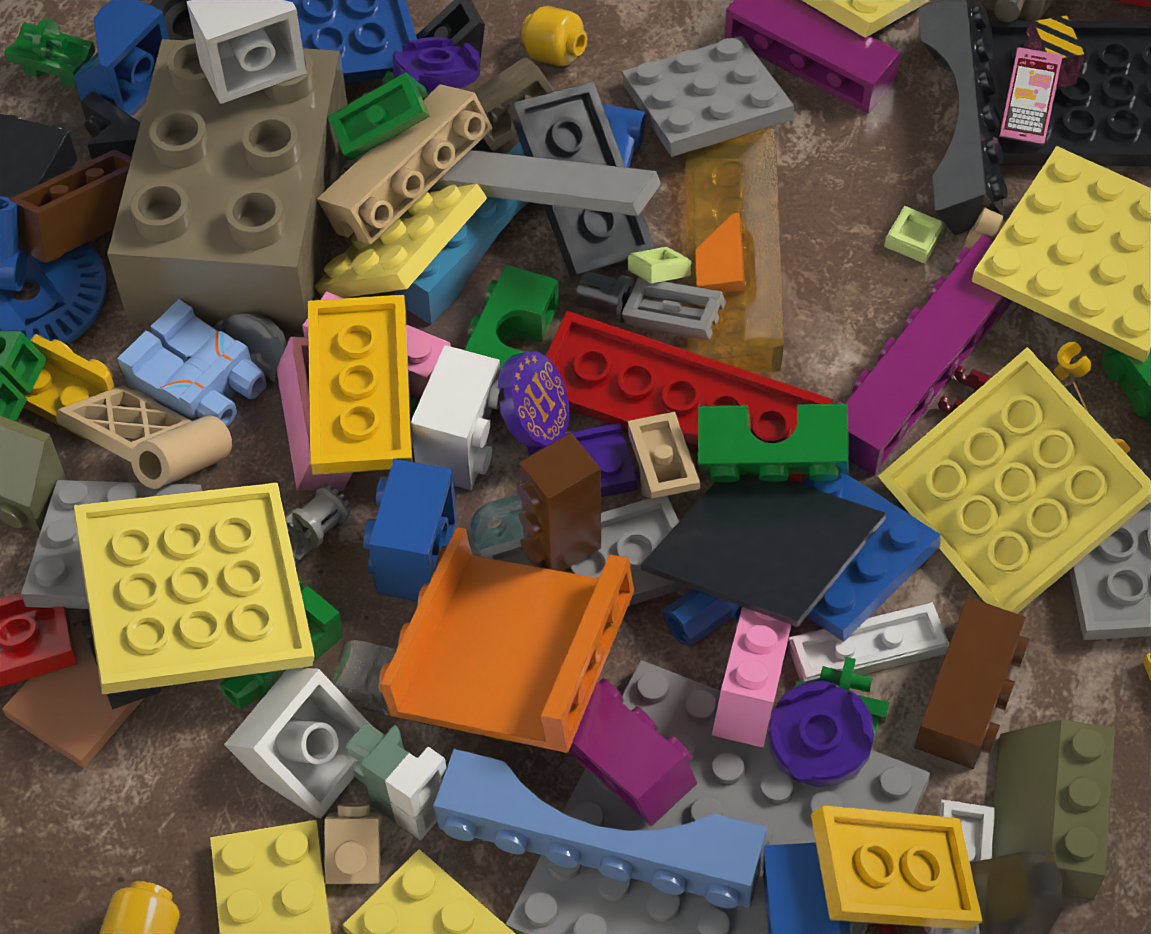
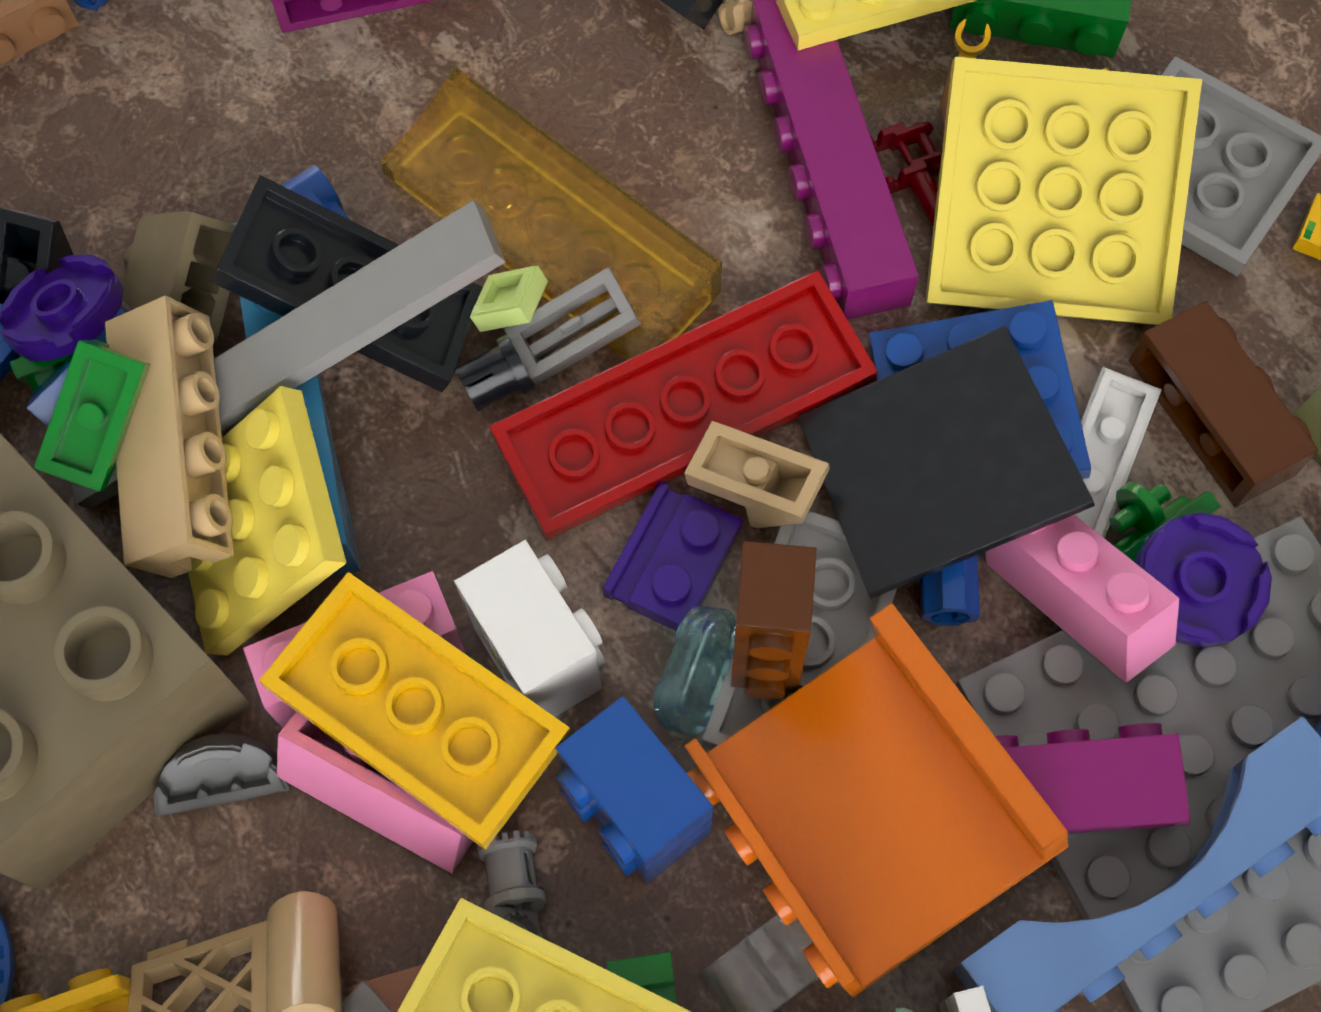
camera: 50 degrees left, 10 degrees up
(191, 366) = (187, 870): light blue hips -> none
(514, 308) = (432, 466): green arch -> none
(534, 399) = (583, 537): dark purple tile -> none
(553, 36) = (127, 173): yellow head -> none
(707, 95) = (347, 98): light grey plate -> none
(721, 258) = (562, 237): orange tile -> none
(815, 447) = (873, 320): green arch -> none
(914, 234) = (676, 58): yellowish green tile -> none

